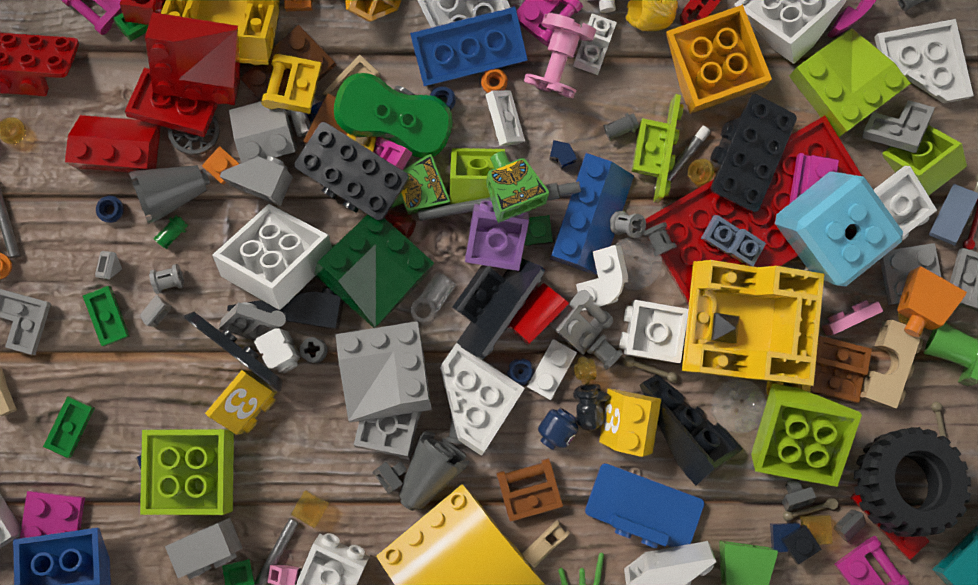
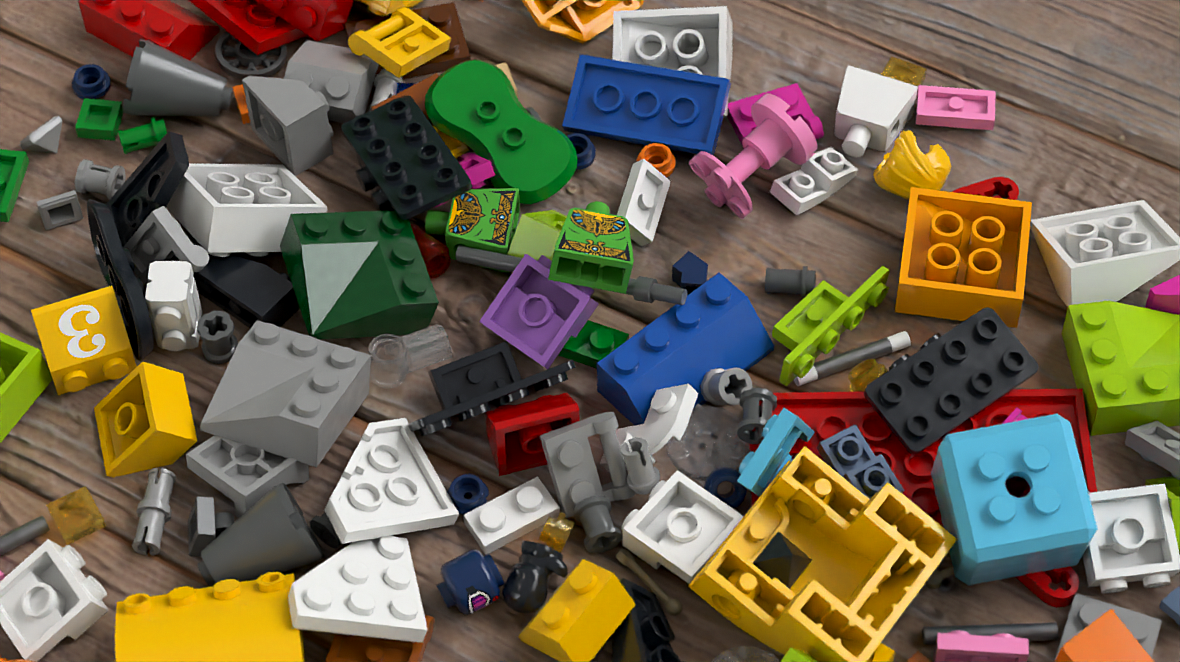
camera: 35 degrees right, 30 degrees down
(135, 234) = (99, 119): none -> green plate
(210, 284) = (149, 185): none -> black wing
(309, 429) = (145, 421): none -> yellow slope
(351, 480) = (154, 511): none -> light grey pin
(510, 477) = (362, 592): none -> white plate
(611, 312) = (641, 473): none -> light grey pin
(662, 290) = (737, 492): none -> dark blue plate
(686, 257) = (779, 436): none -> medium azure wing
(851, 296) = (1032, 631): none -> flat silver bar

